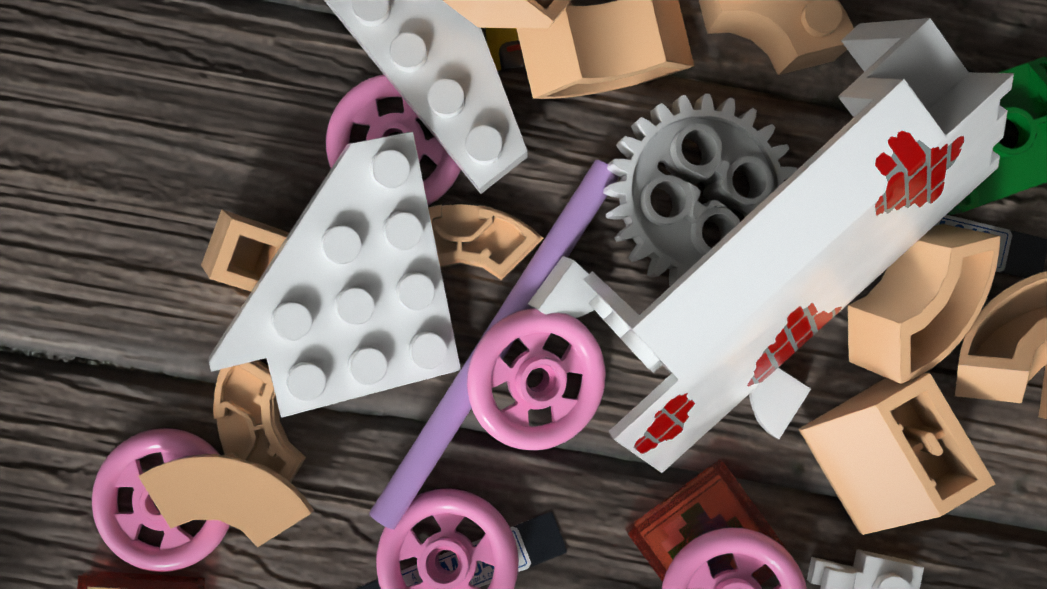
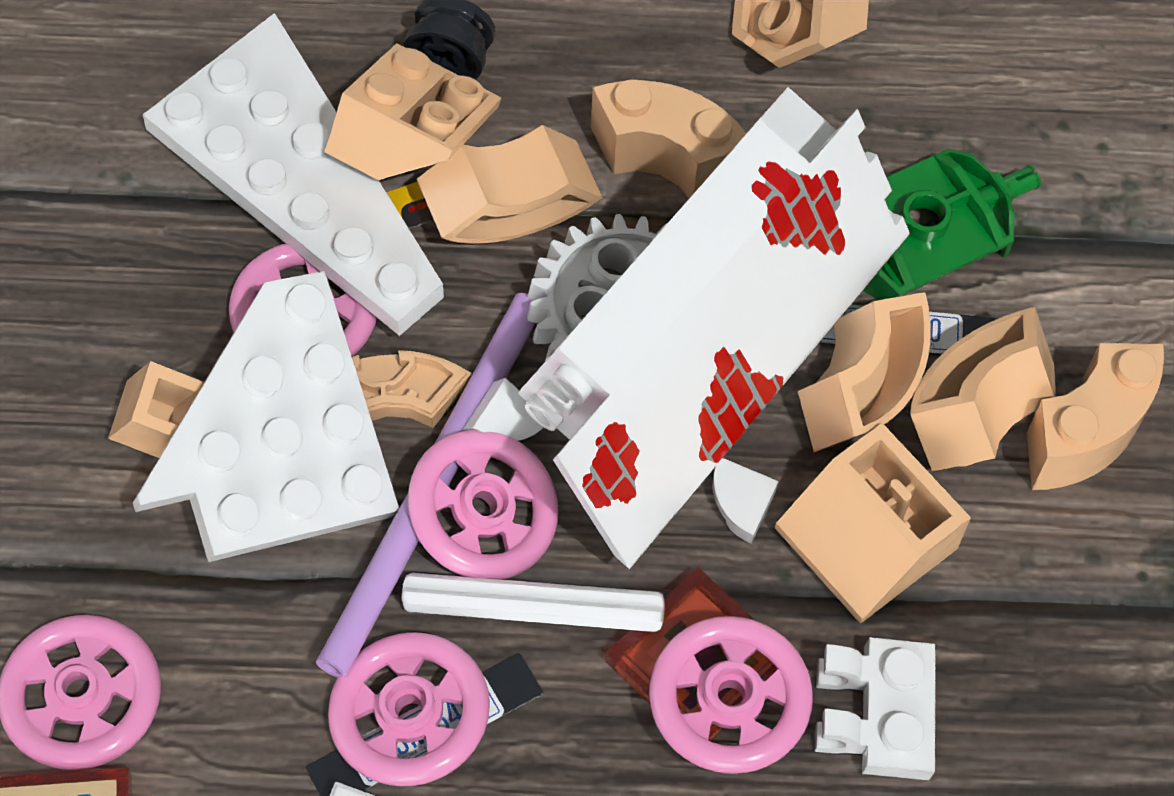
camera: 10 degrees left, 25 degrees down
(227, 491) = (156, 654): light nougat tile -> none
(251, 419) = (172, 605): light nougat tile -> none
(571, 480) = (533, 602): none -> white axle

